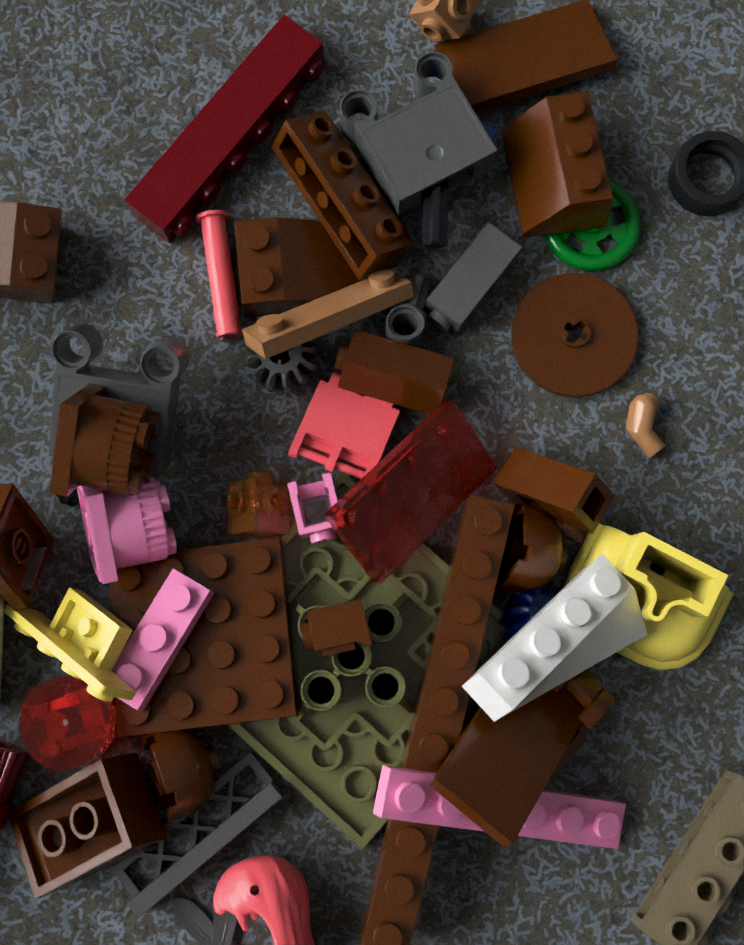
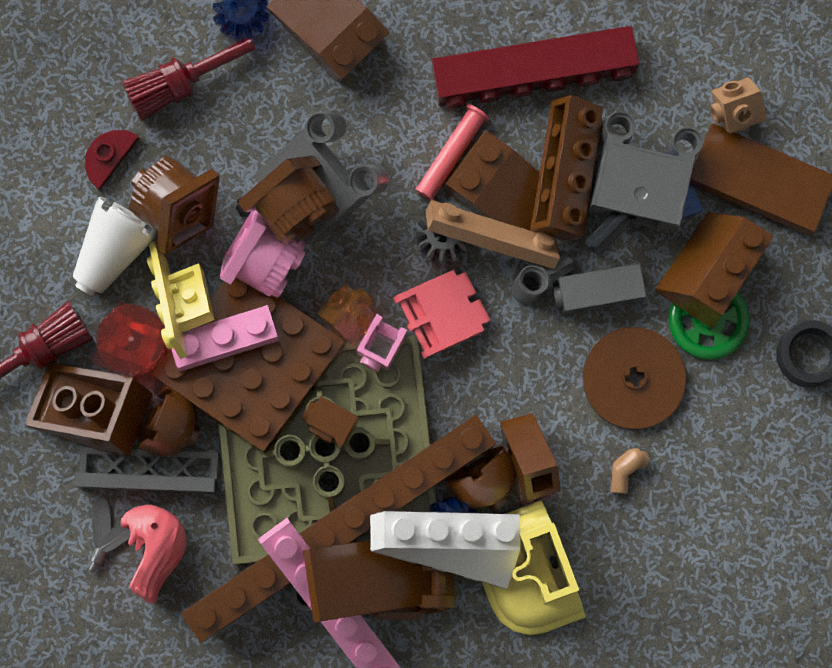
camera: 40 degrees right, 0 degrees up
(393, 371) = (500, 303): reddish brown brick -> none
(411, 491) = (446, 383): clear red plate -> none

